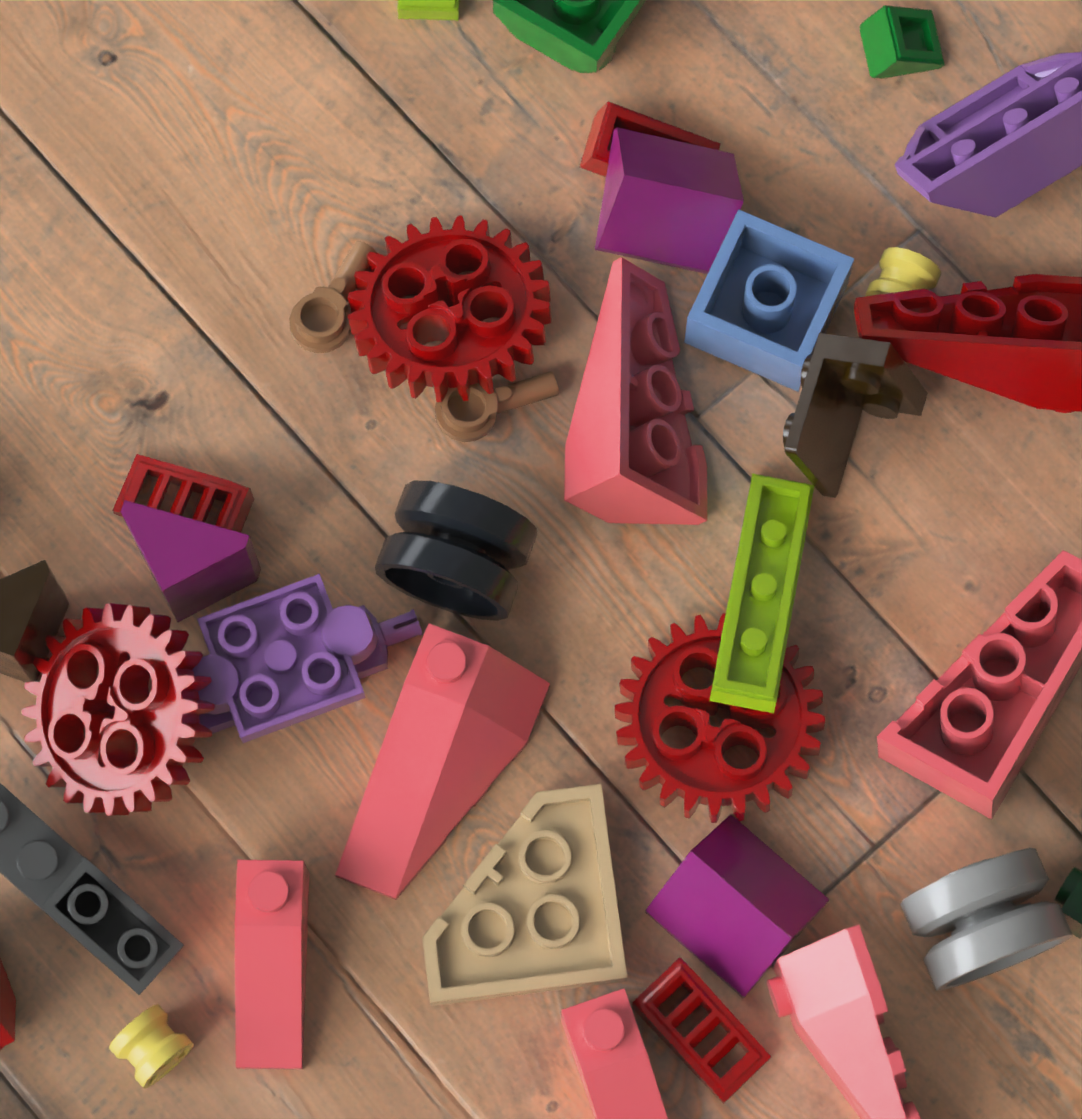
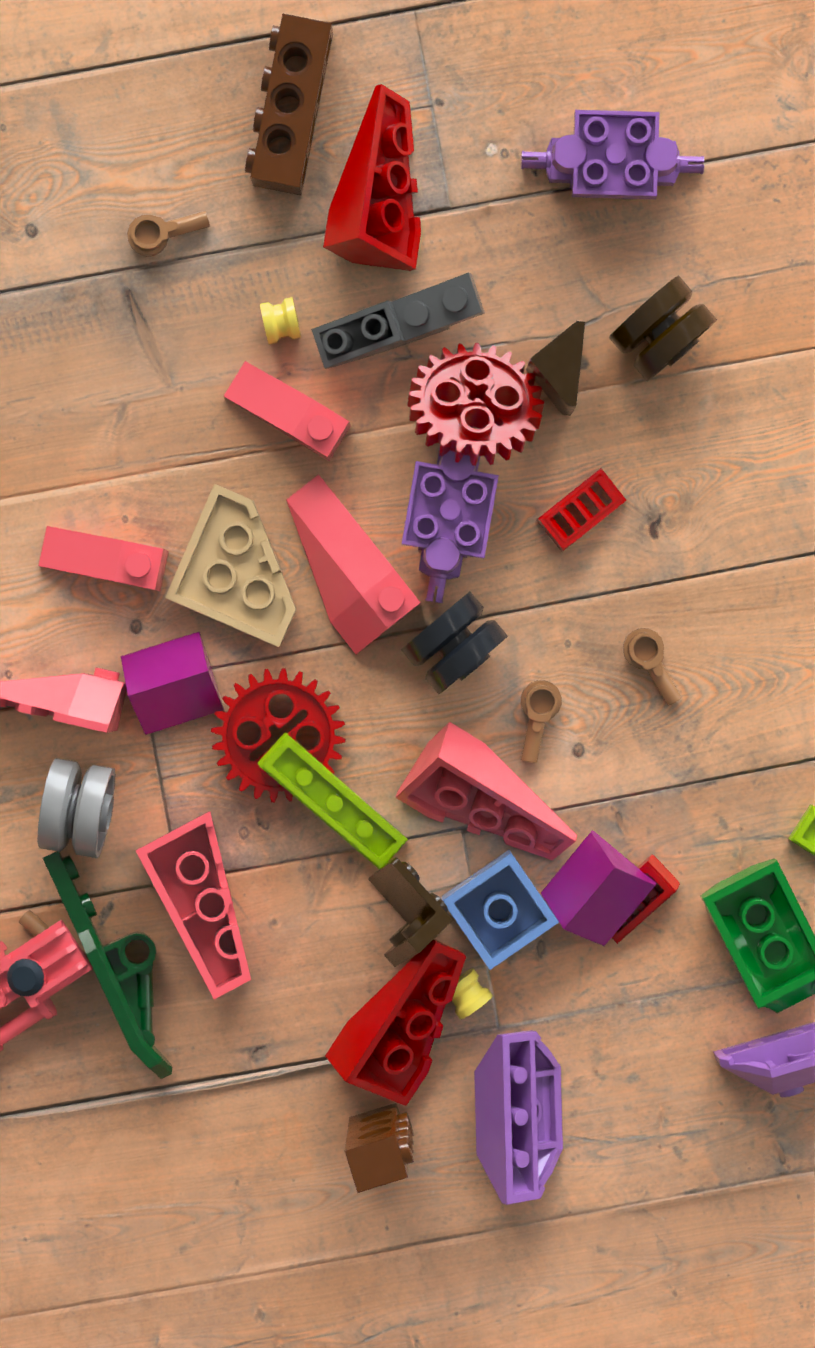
camera: 115 degrees right, 15 degrees up
(190, 558) = (538, 487): magenta slope -> none
(449, 308) = (569, 723): red gear -> none
(700, 994) = (148, 614): red slope -> none
(901, 42) = (617, 1088): green slope -> none

